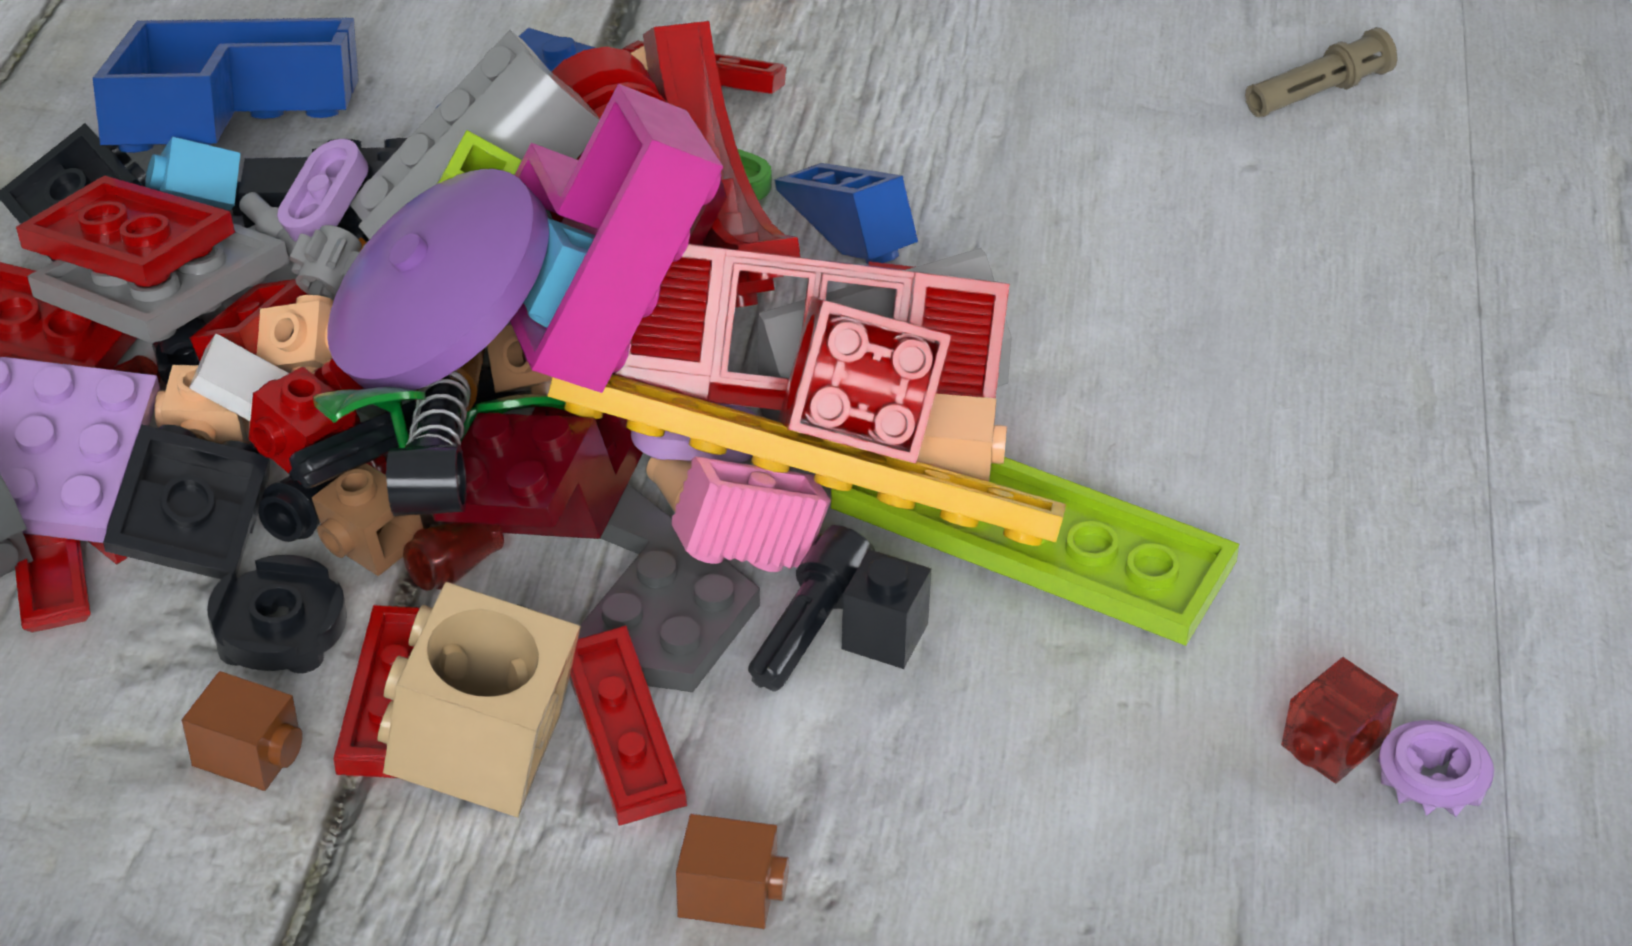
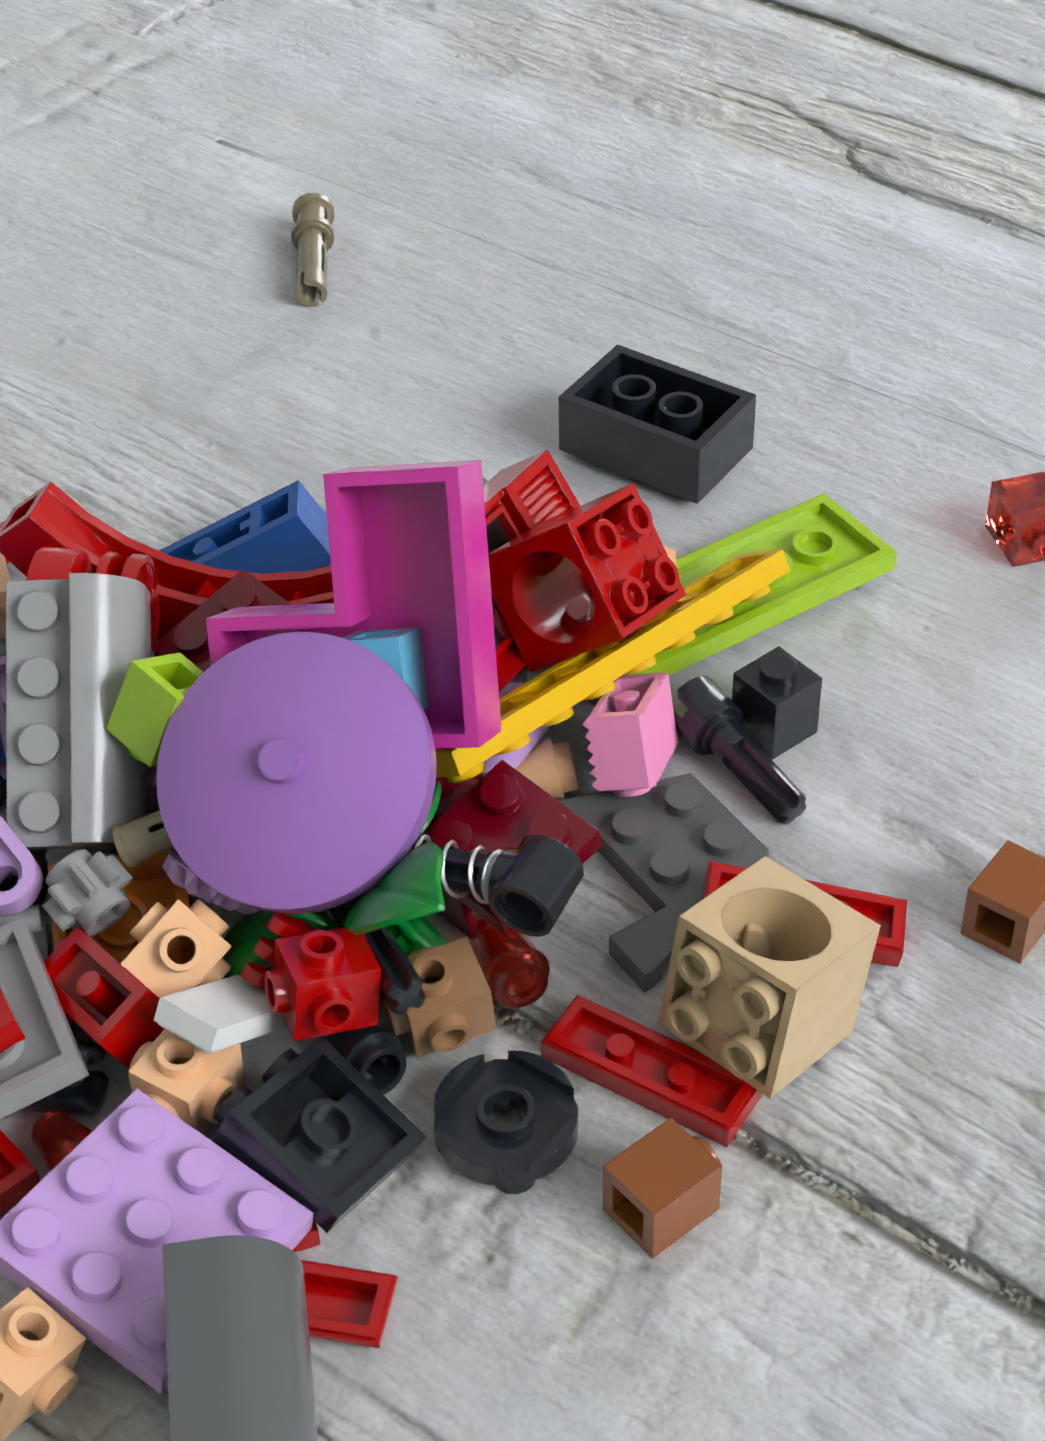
camera: 60 degrees left, 0 degrees up
(1236, 384) = (657, 423): none -> black brick

